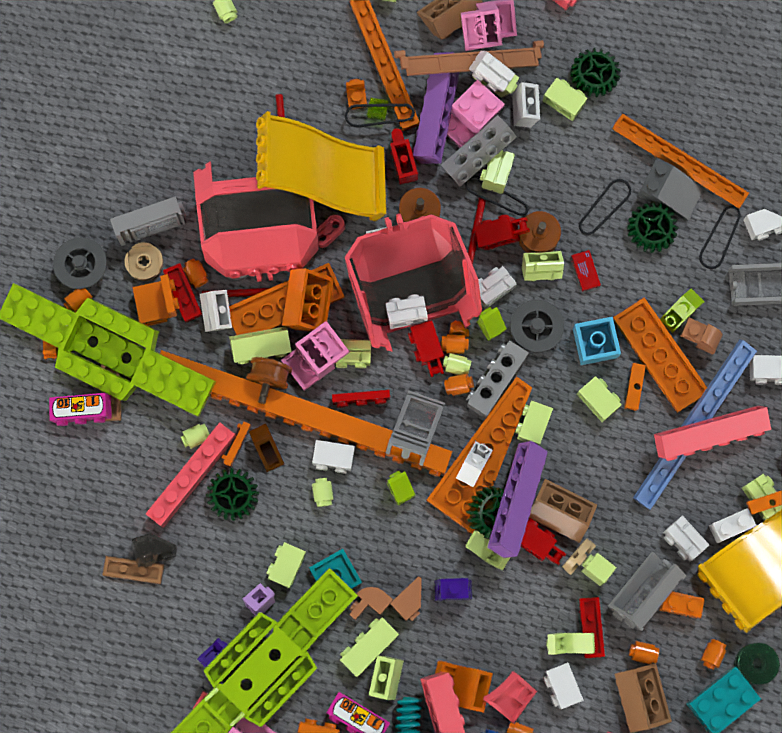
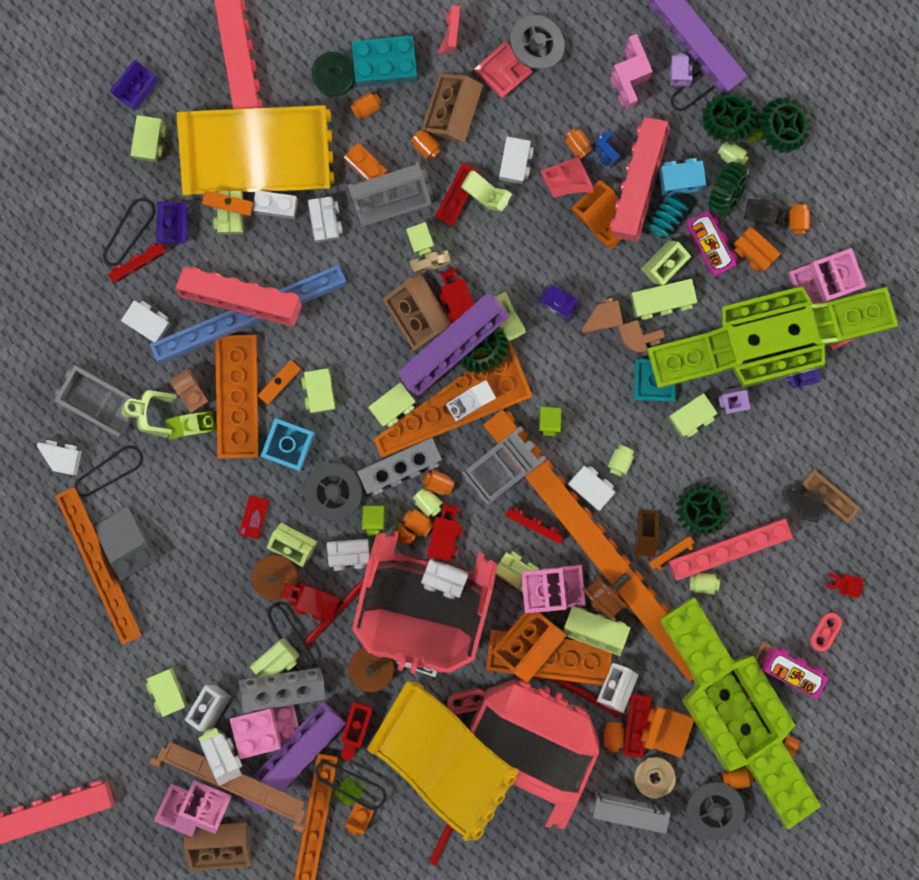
camera: 145 degrees left, 10 degrees up
(71, 458) = (823, 630): none -> coral plate
(76, 506) = (848, 585): none -> red plate
(583, 78) = (103, 697): dark green gear -> none
(629, 193) = (199, 576): black piece -> none
(666, 238) = (162, 510): dark green gear -> none
(729, 295) = (139, 410): none -> yellowish green piece

